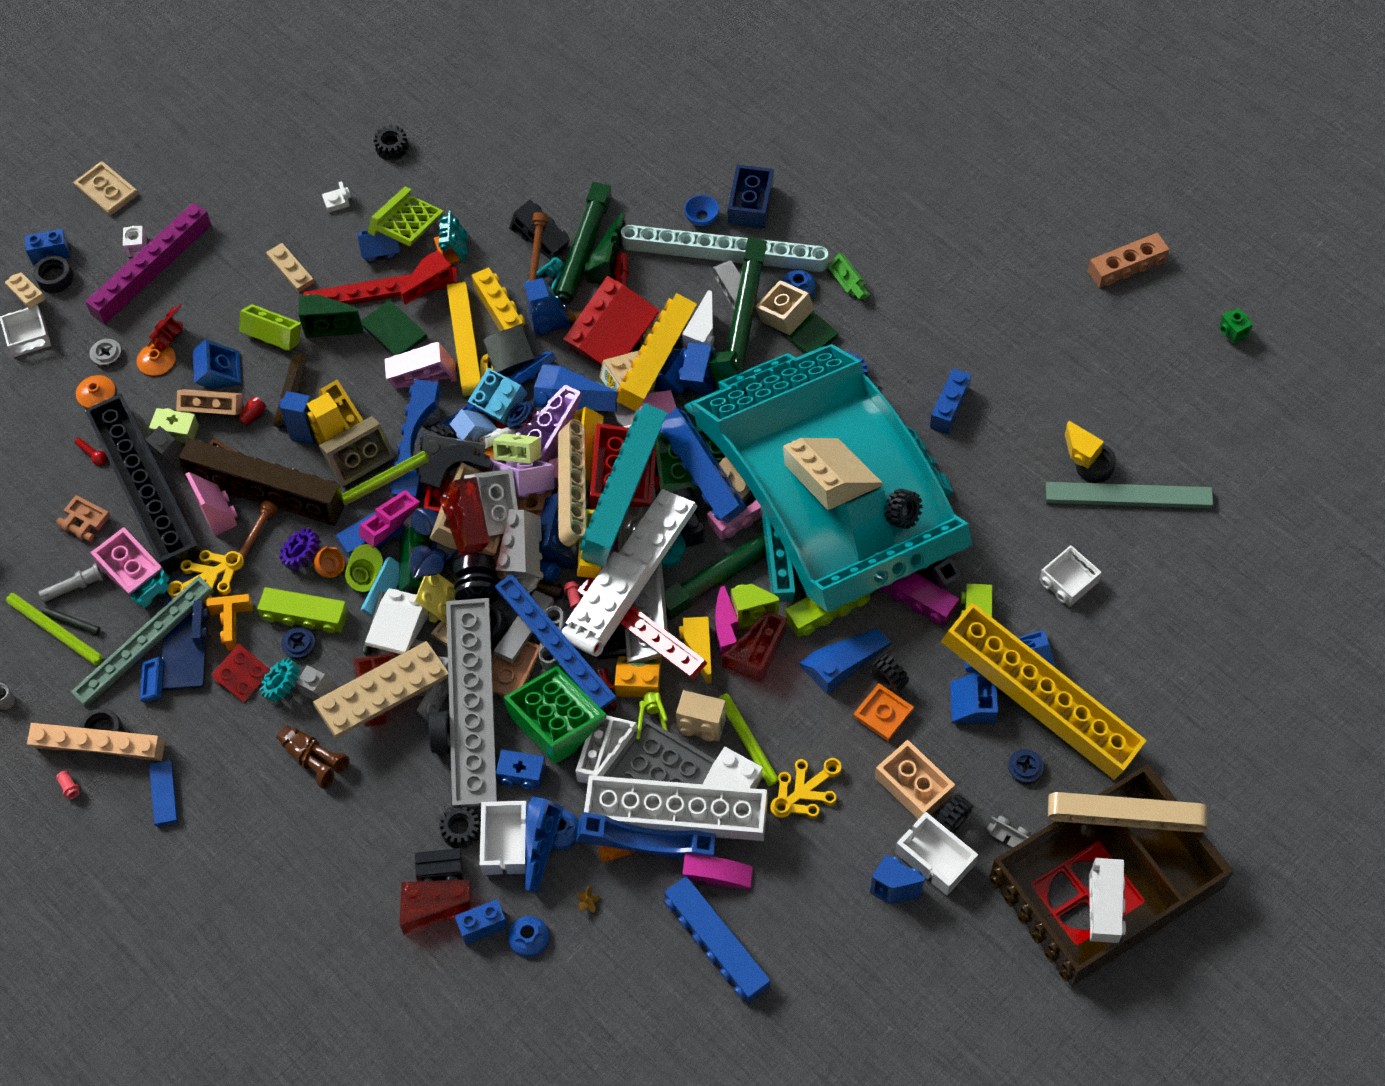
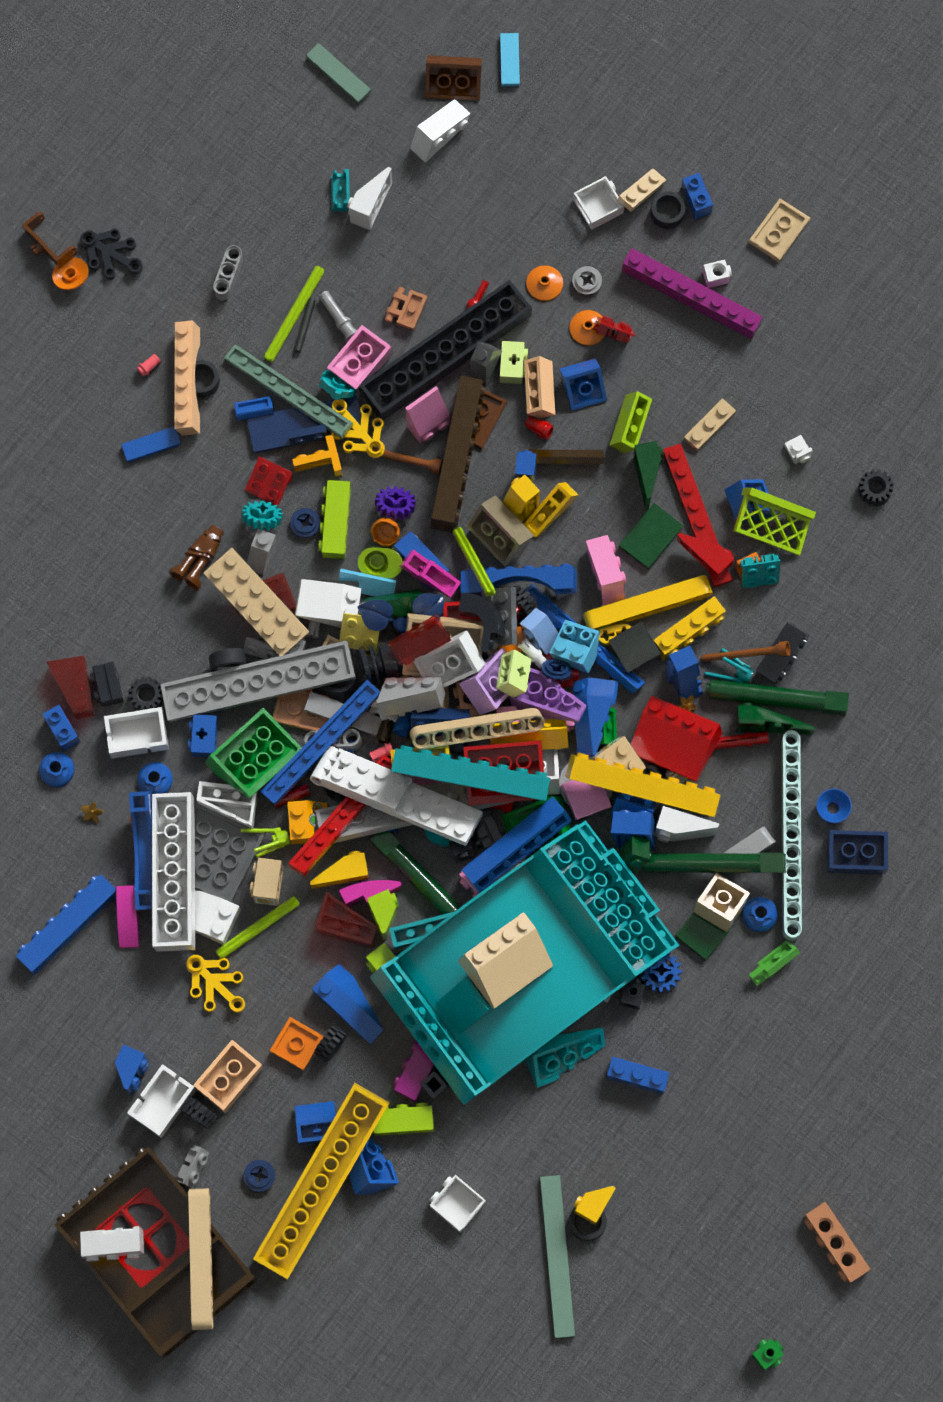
camera: 80 degrees right, 15 degrees up
(541, 827) = (140, 761): blue wedge -> none
(903, 499) = (481, 1033): black tyre -> none

